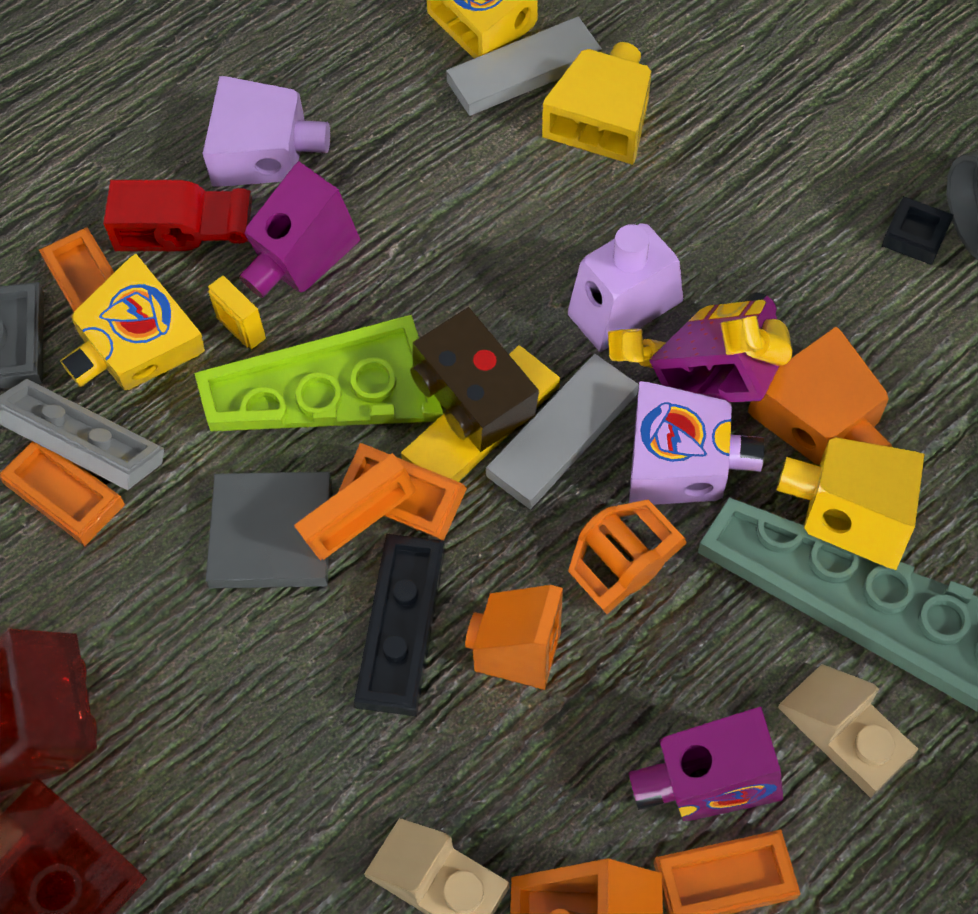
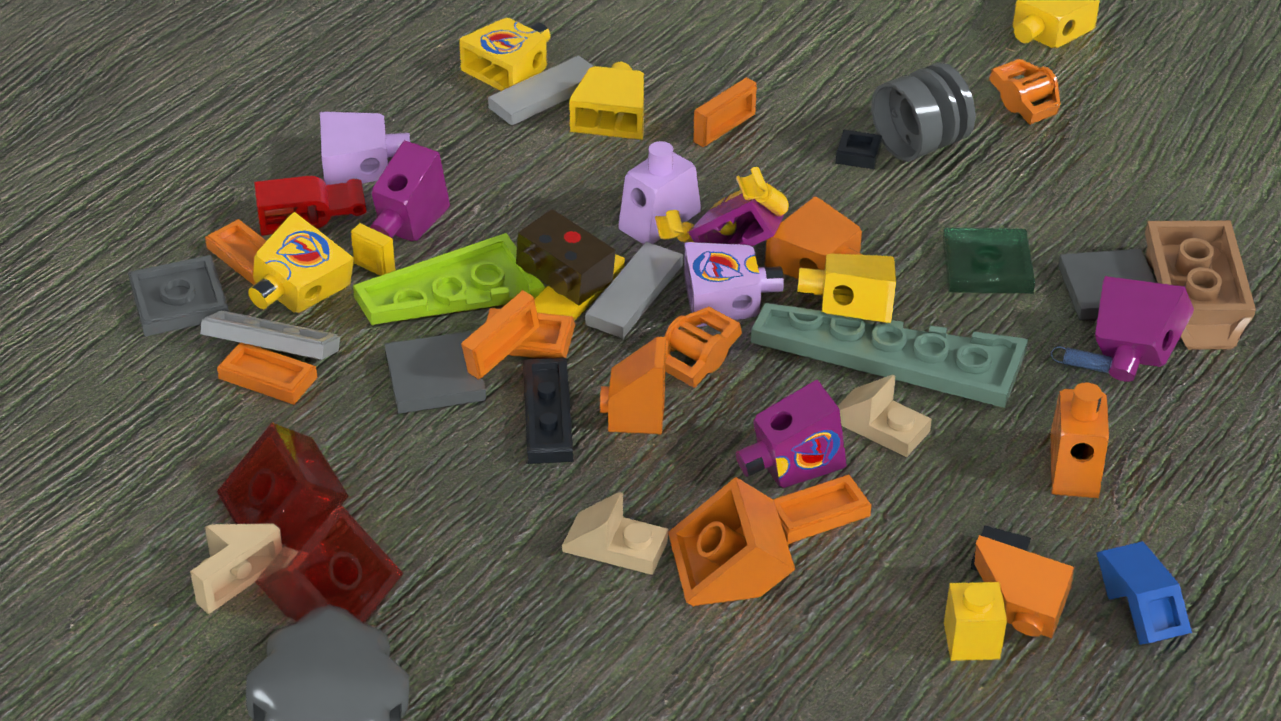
camera: 15 degrees left, 20 degrees down
(748, 144) = (724, 112): none -> orange tile

